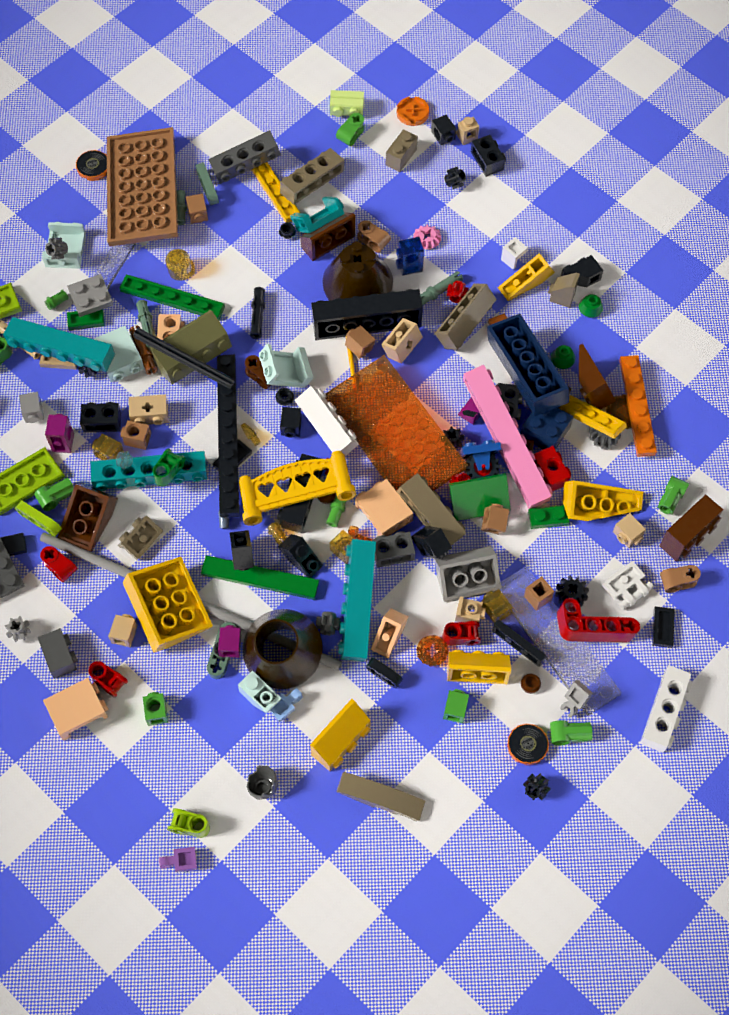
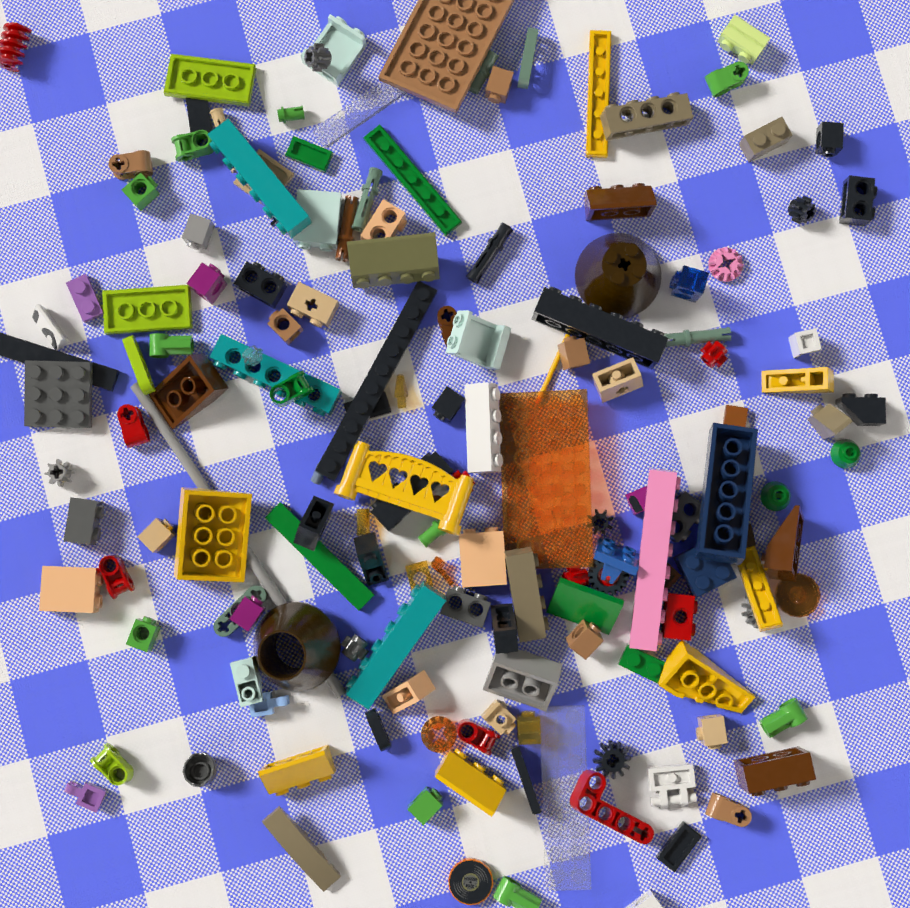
camera: 30 degrees right, 20 degrees up
(90, 295) = (326, 132): light grey plate -> none
(106, 448) = (247, 325): clear yellow brick -> none
(140, 537) = (226, 443): dark tan bracket -> none
(177, 264) = (439, 145): clear yellow helmet -> none
(183, 358) = (375, 274): black axle -> none
(244, 157) = (577, 42): dark grey brick -> none
(284, 392) = (459, 363): black plate -> none
(287, 230) = (584, 165): black plate -> none
(332, 210) = (621, 177): teal panel -> none
(374, 237) = (667, 234): medium nougat piece -> none
(412, 111) = (812, 91): orange tile -> none
(465, 316) = (703, 390): dark tan brick -> none
(467, 125) = (853, 153): tan brick -> none
(530, 683) = (512, 824): reddish brown plate -> none
(539, 593) = (573, 749): medium nougat brick -> none
(577, 697) = (543, 871): light grey plate -> none
(637, 406) = (814, 600): orange plate -> none

